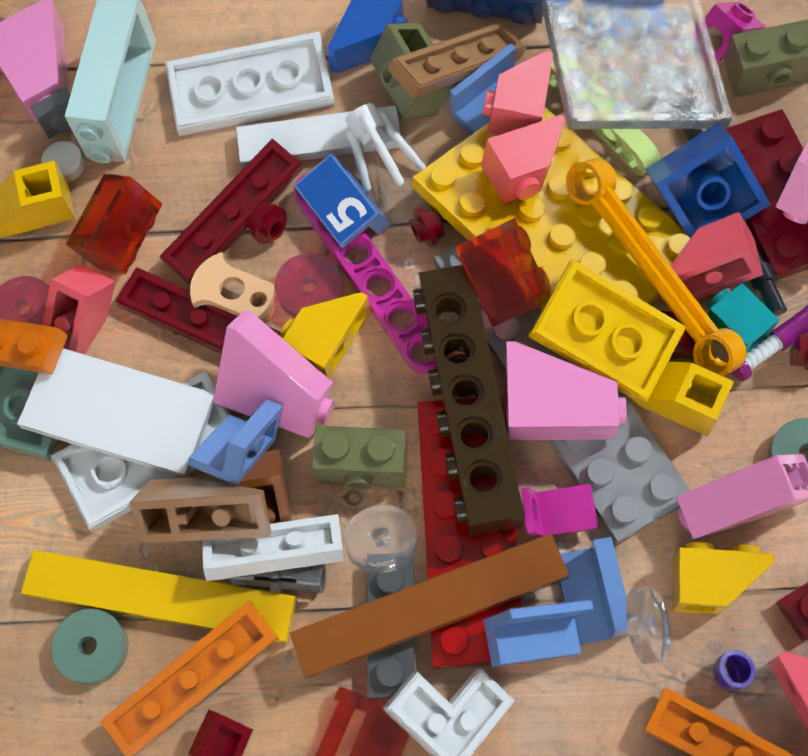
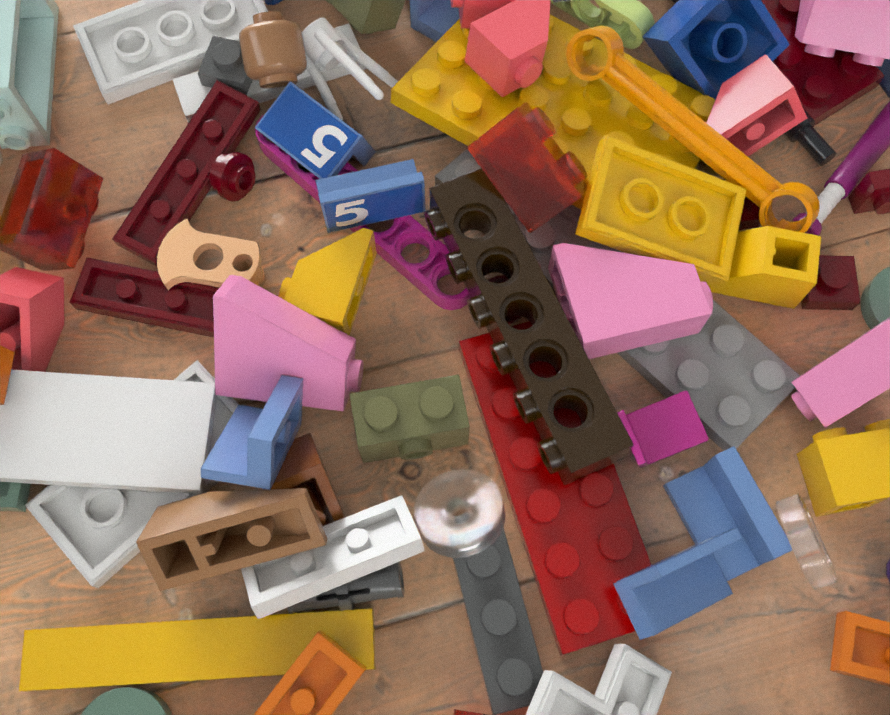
camera: 20 degrees left, 0 degrees up
(286, 125) = (224, 63): none -> dark grey plate
(302, 270) = (285, 222): clear pink piece -> none
(323, 124) = (272, 50): none -> medium nougat head
(373, 264) = (371, 195): none -> panel
(426, 225) = (418, 142): dark red plate -> none
(428, 606) = (537, 585): dark orange tile -> none
(743, 314) = (796, 162): teal brick -> none
(744, 420) = (835, 286): none -> dark red plate

